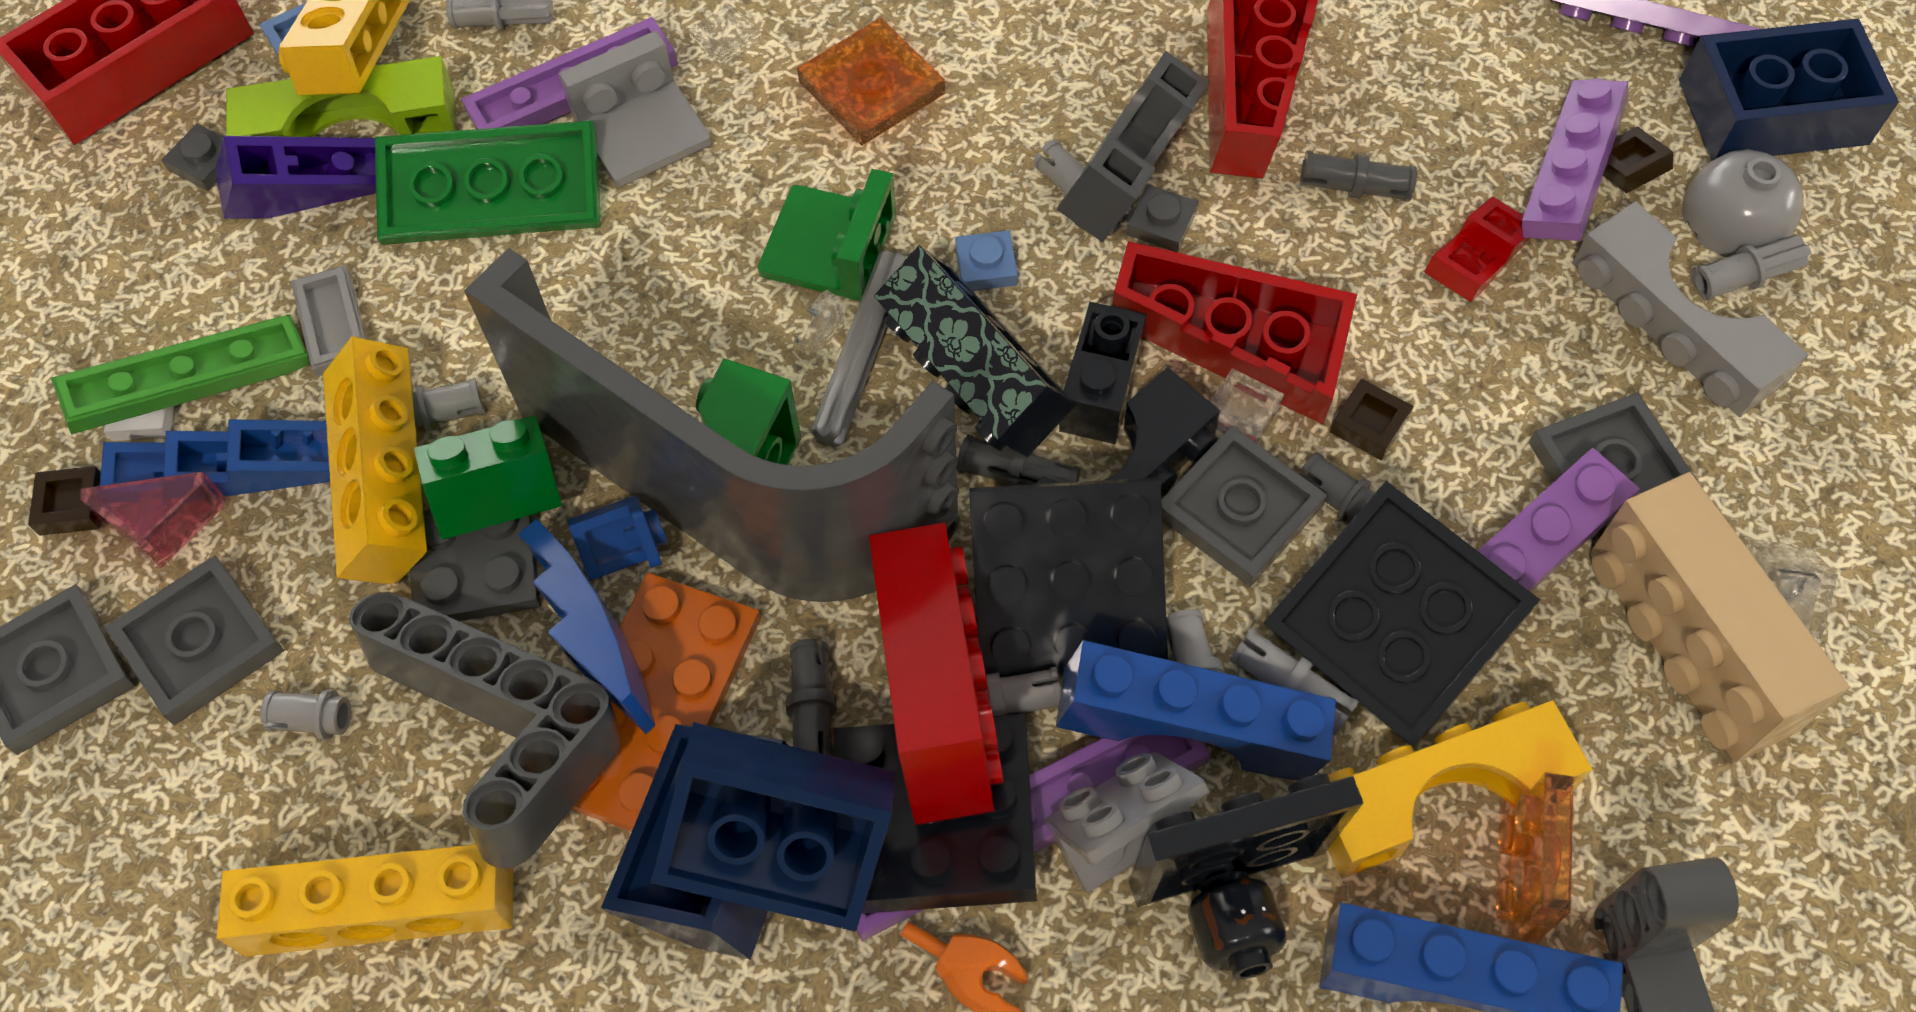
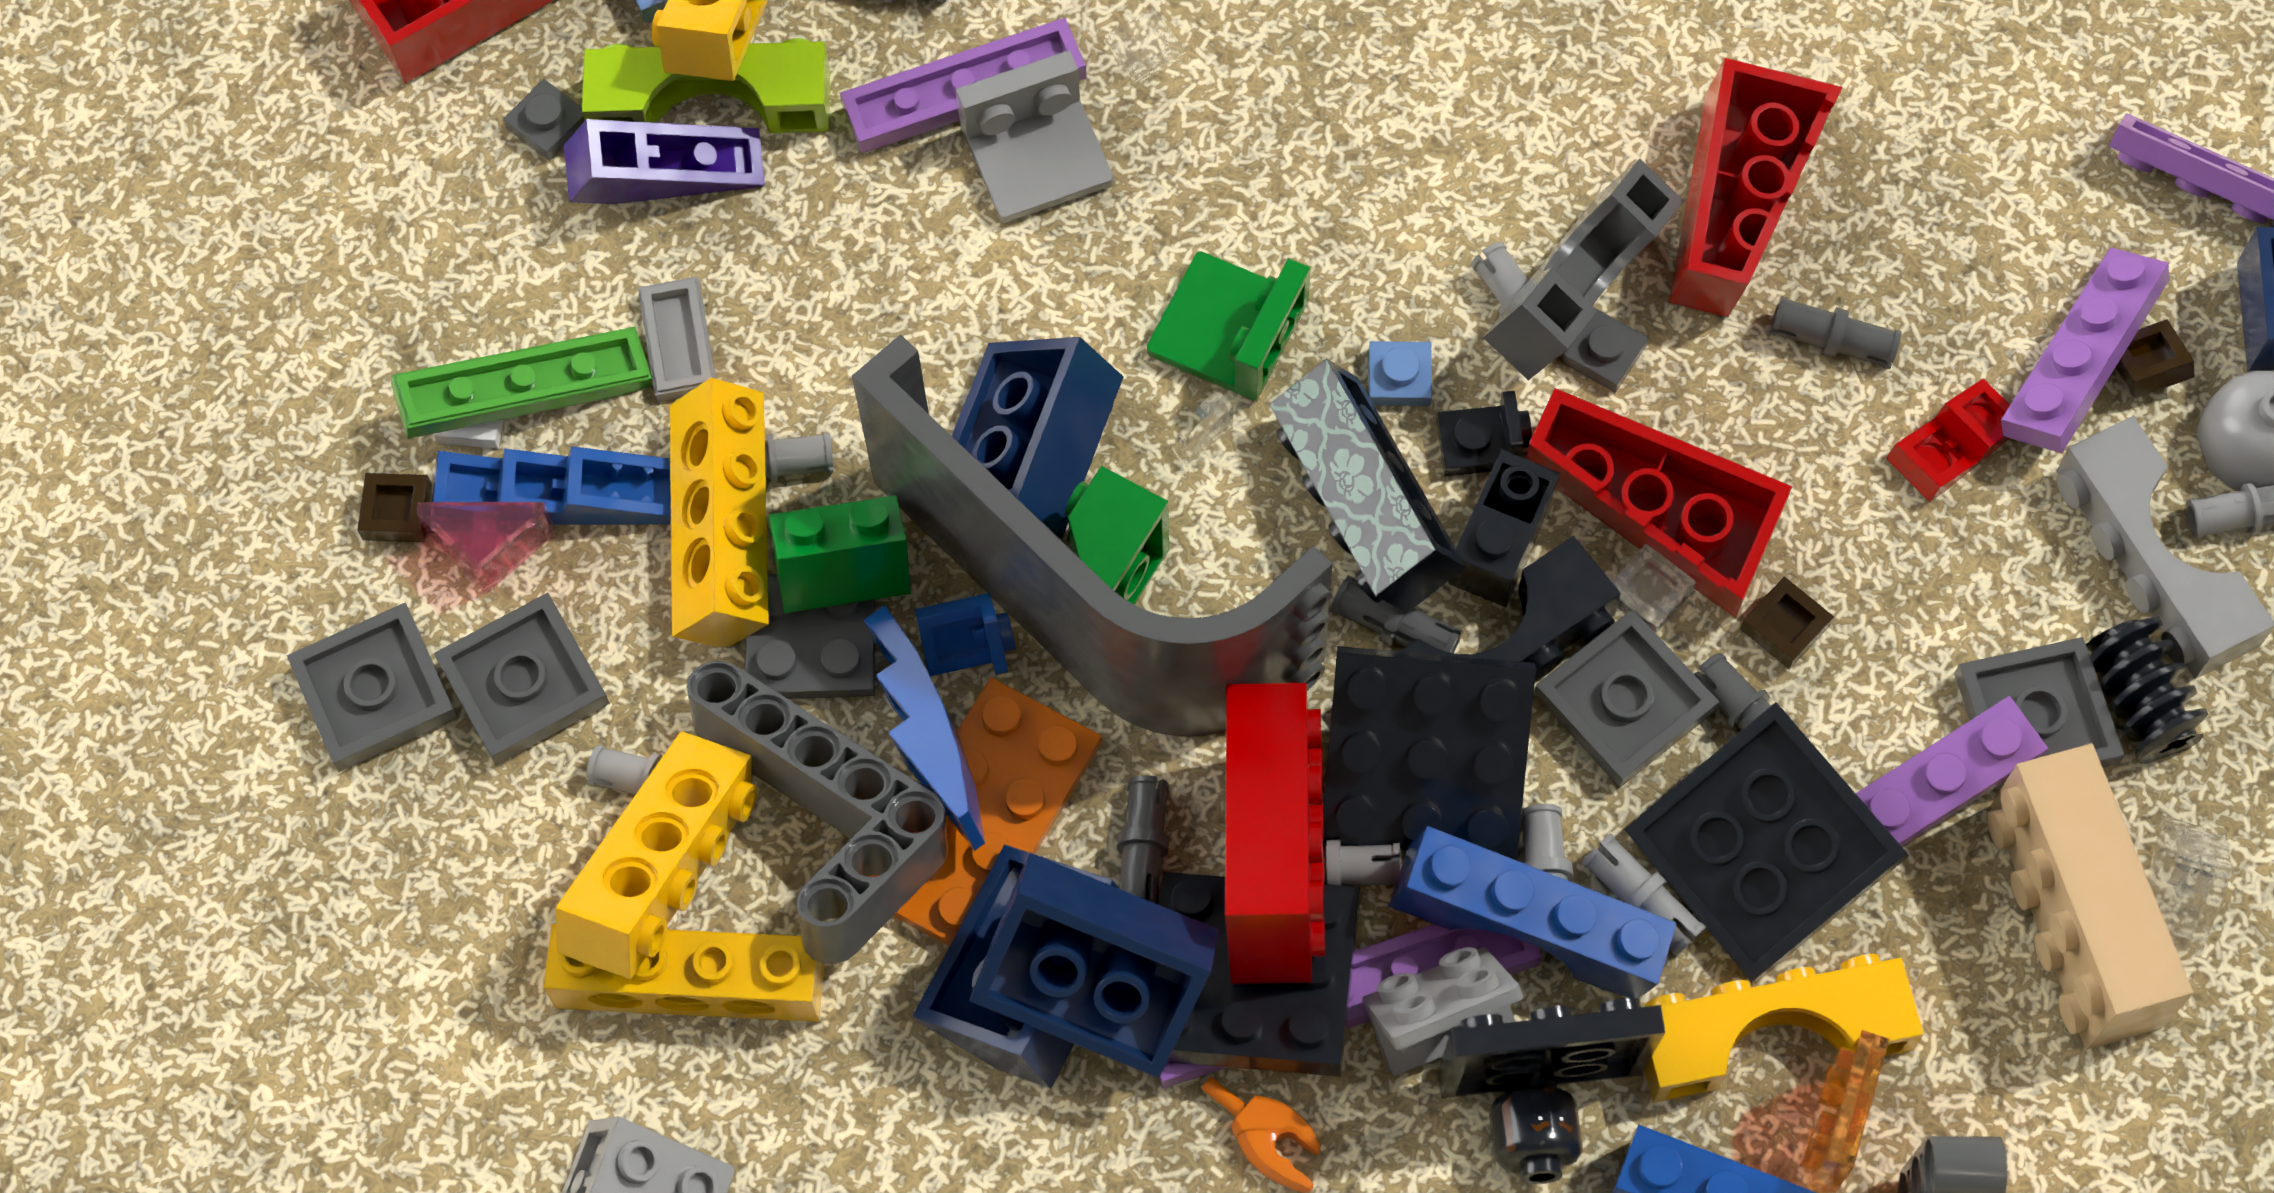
camera: 10 degrees right, 5 degrees up
(320, 790) = (655, 855): none -> yellow brick
(487, 182) = (861, 200): green tile -> none
(670, 328) = (1039, 419): none -> dark blue slope
(855, 357) = (1243, 462): light grey axle -> none
(871, 81) = (1303, 133): clear orange plate -> none
(1062, 303) = (1475, 436): none -> black bracket
(1707, 428) = (2146, 689): none -> black piece

